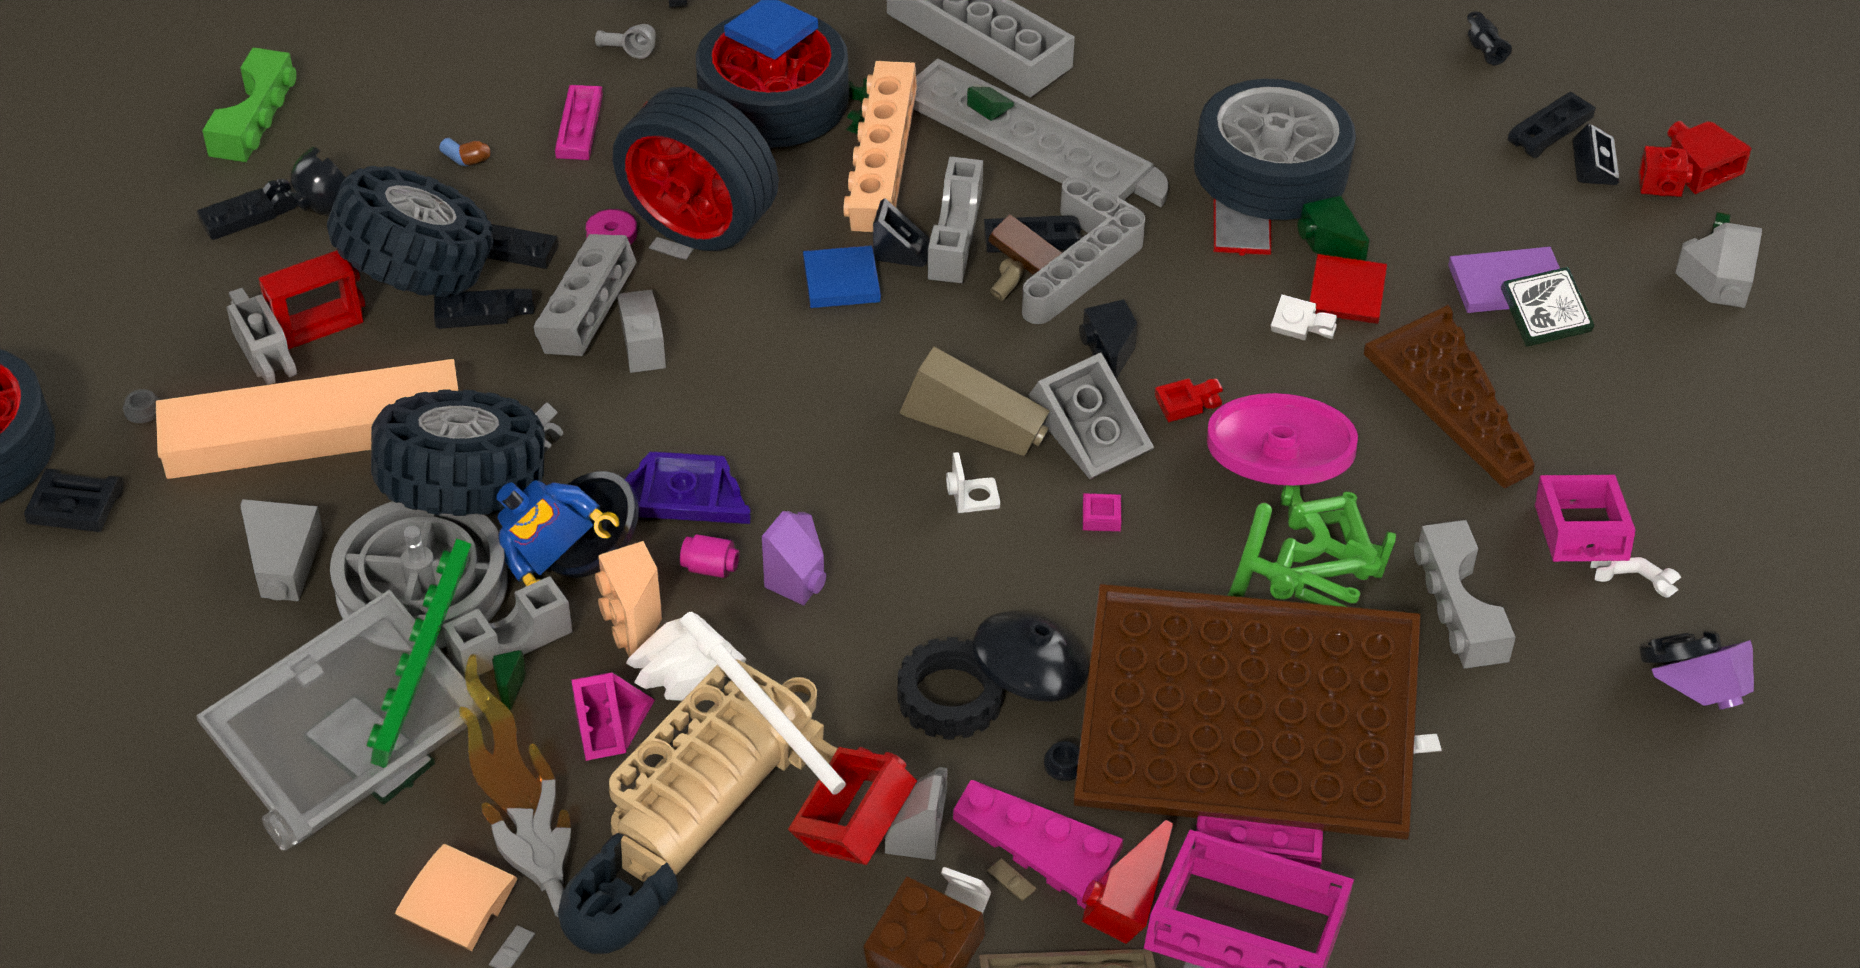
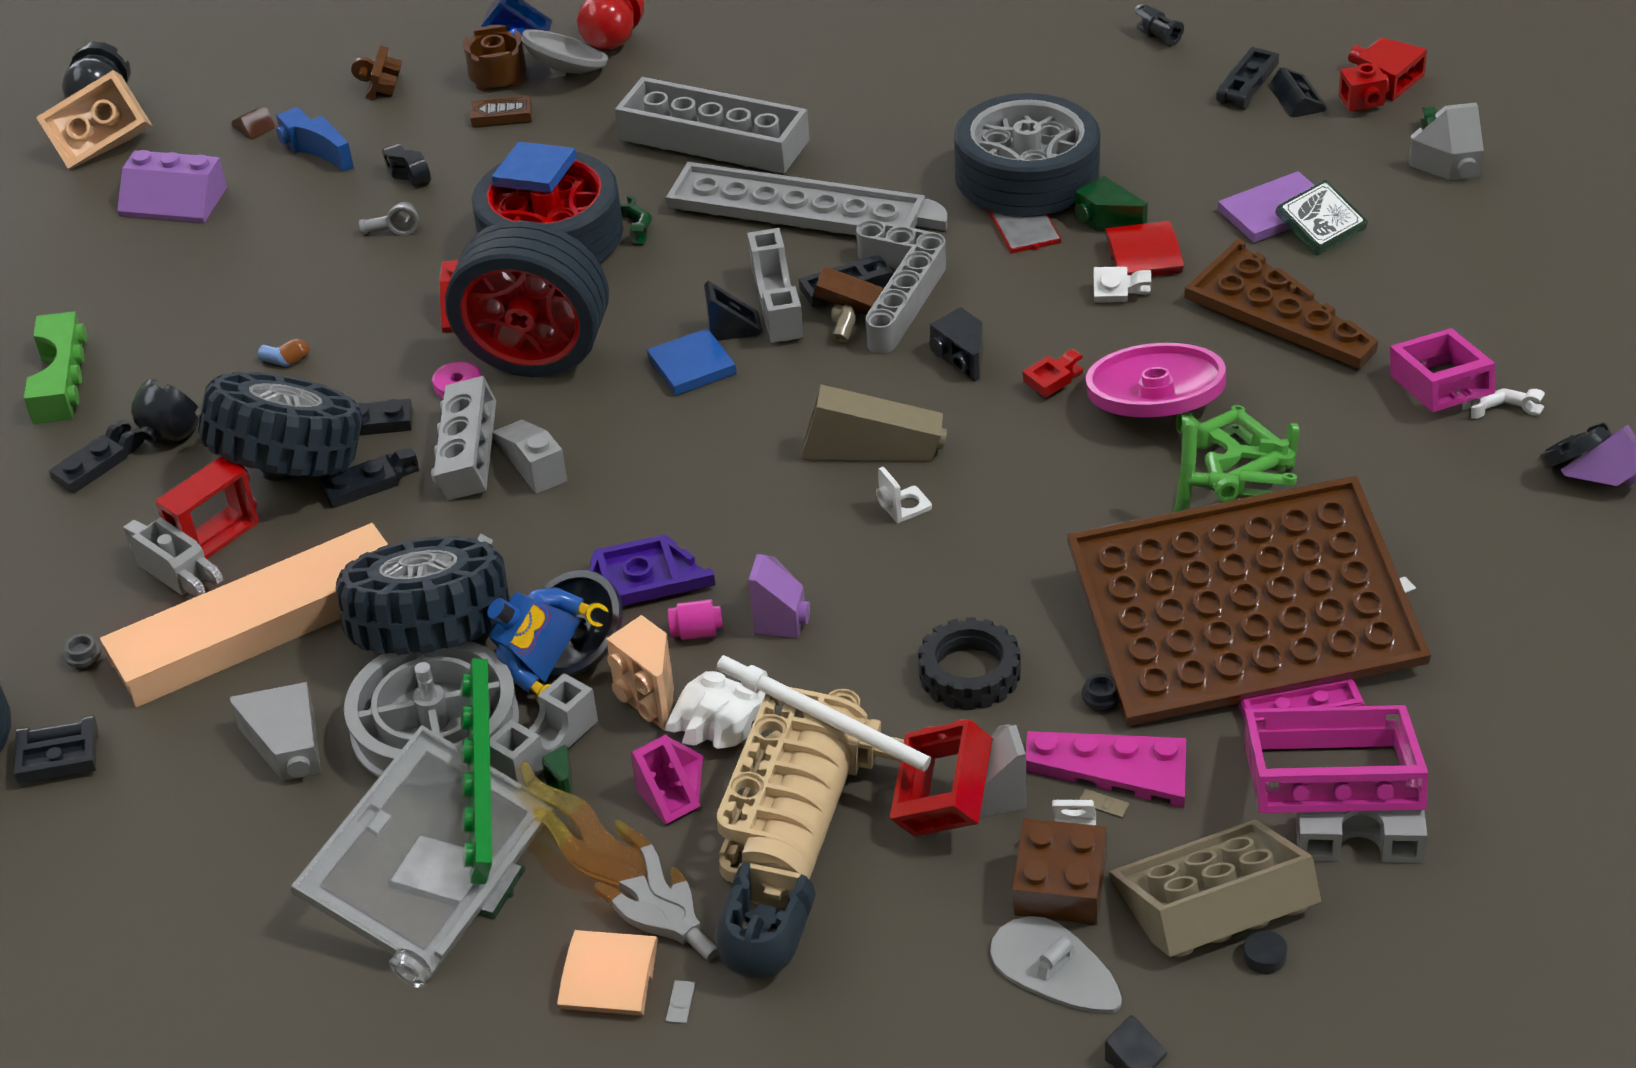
camera: 15 degrees left, 5 degrees down
(579, 122) = (379, 301): dark pink tile -> none
(671, 248) = (520, 382): light grey piece -> none
(882, 142) = (676, 242): light nougat brick -> none
(987, 102) = (753, 184): dark green slope -> none
(1030, 656) = (1028, 614): black dish -> none
(1091, 416) = (980, 409): light grey slope -> none
(1101, 512) = (1025, 485): dark pink tile -> none
(1124, 895) = (1215, 778): slope -> none
(1476, 629) = (1397, 482): light grey arch -> none

